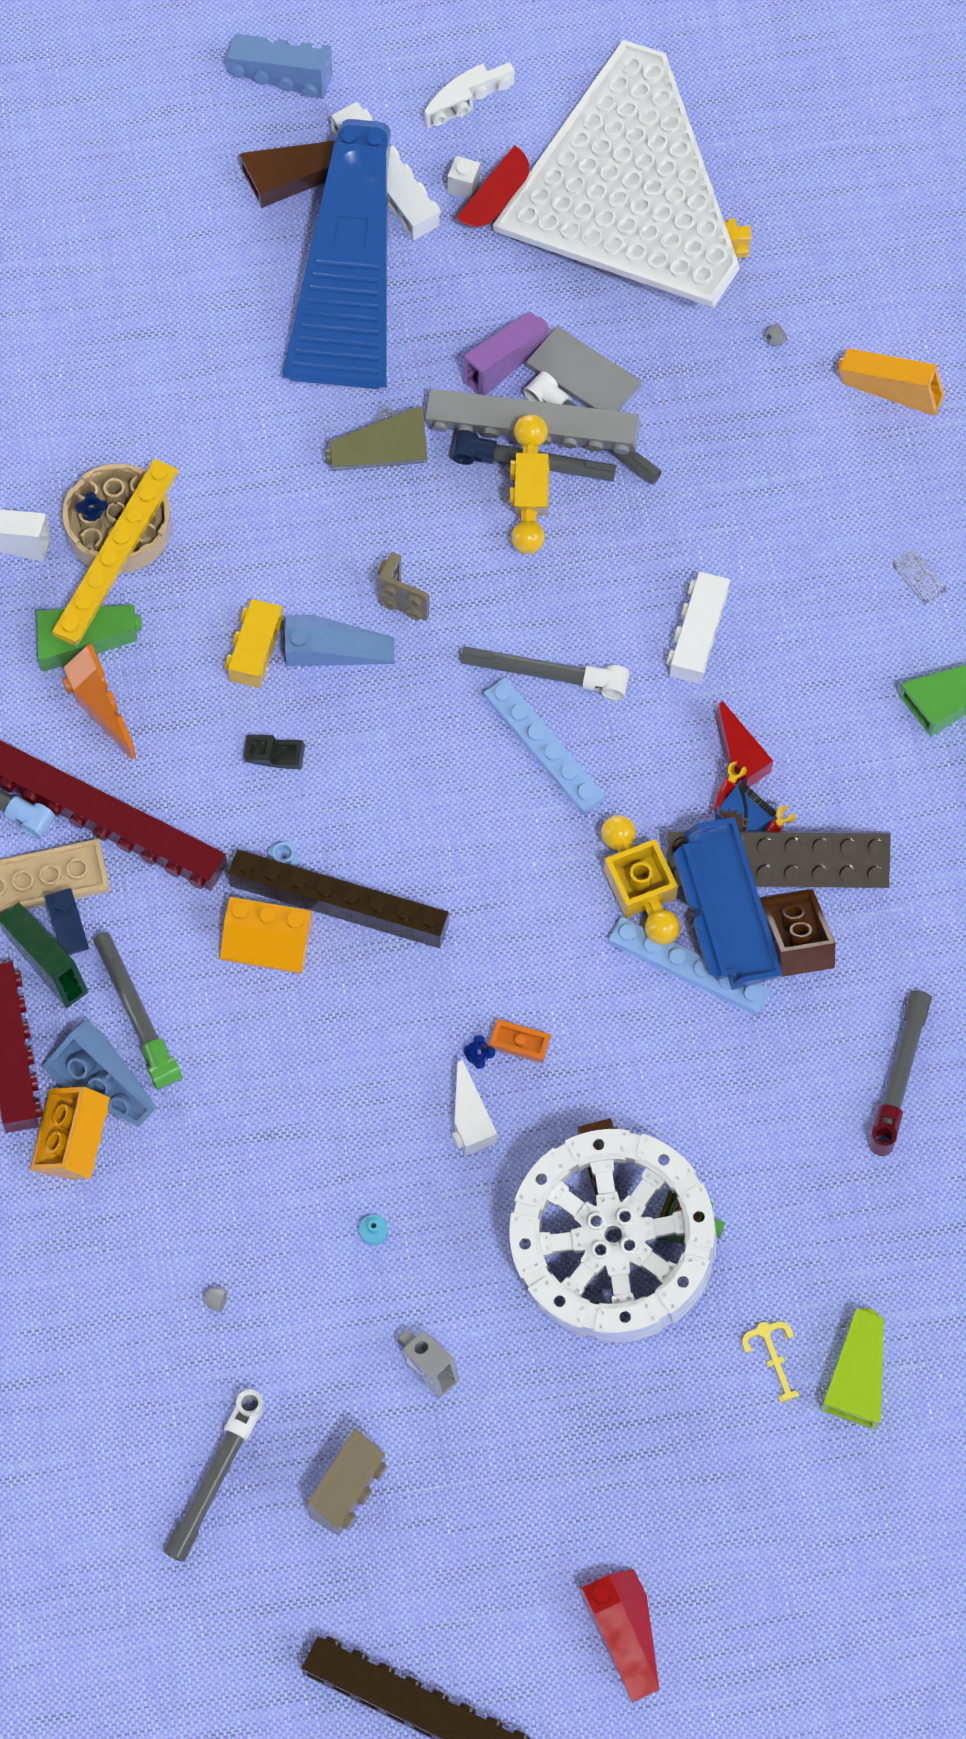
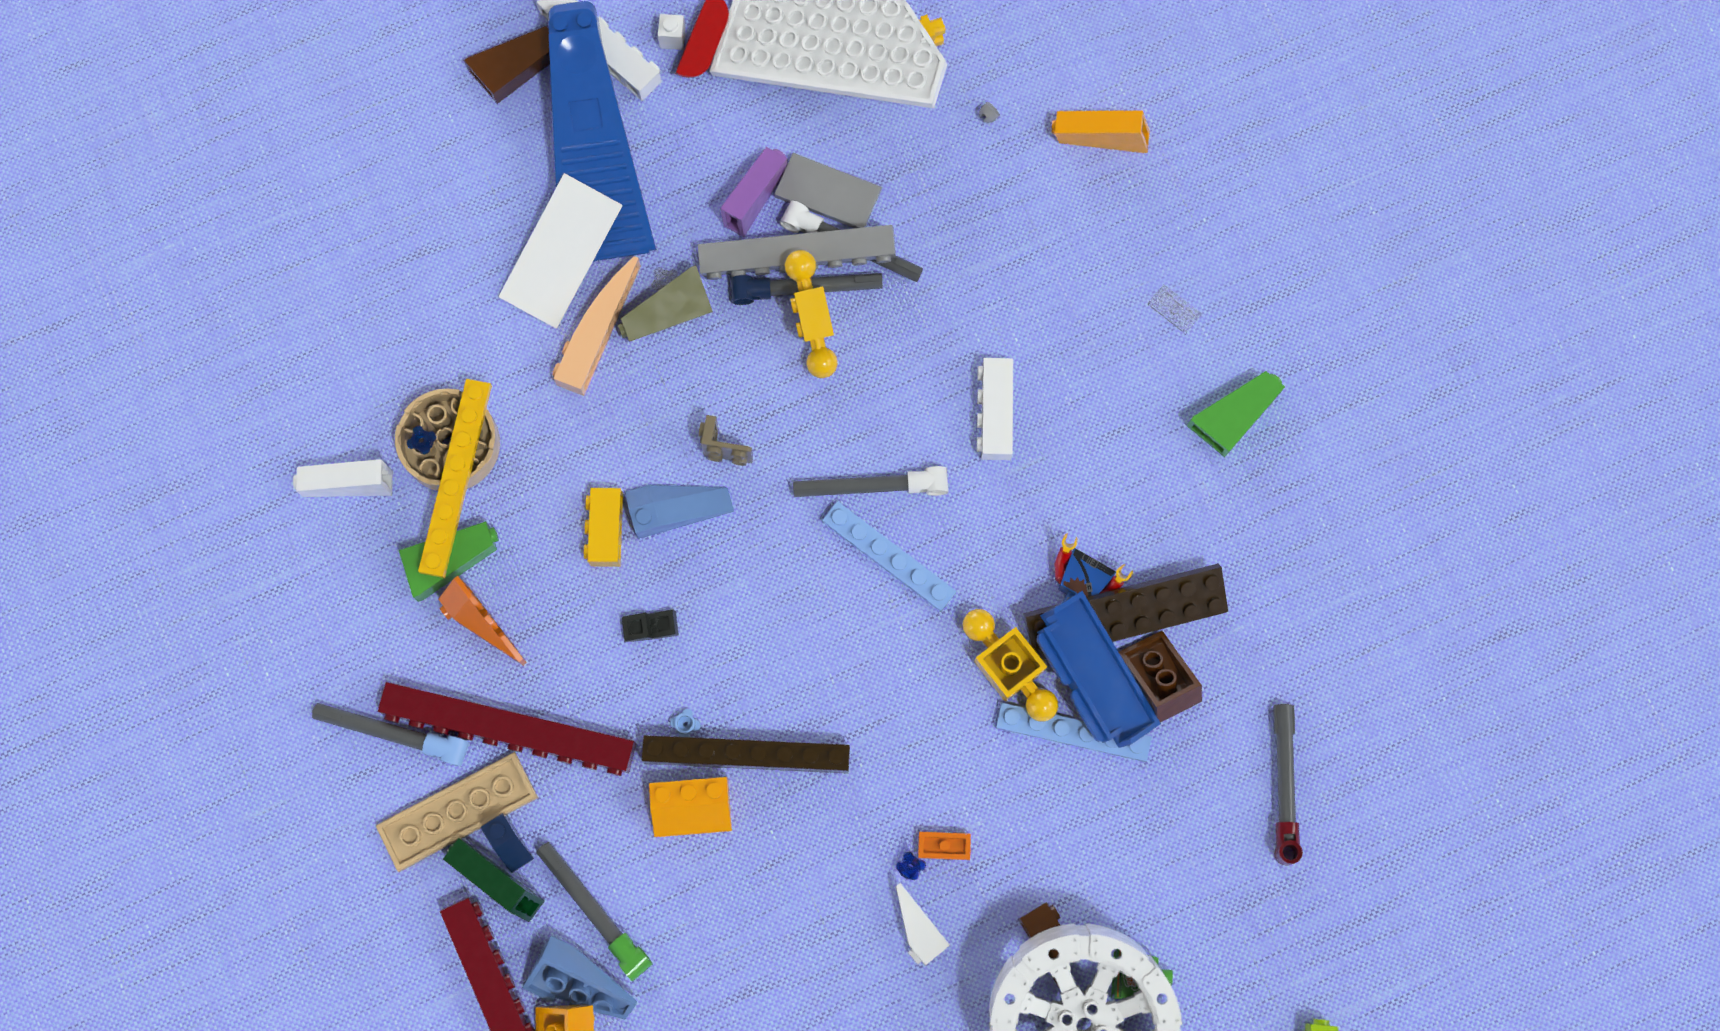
camera: 15 degrees left, 10 degrees up
(286, 363) = (560, 251): none -> white sticker
(299, 449) = (593, 332): none -> light nougat slope
(742, 747) = (1064, 514): red slope -> none

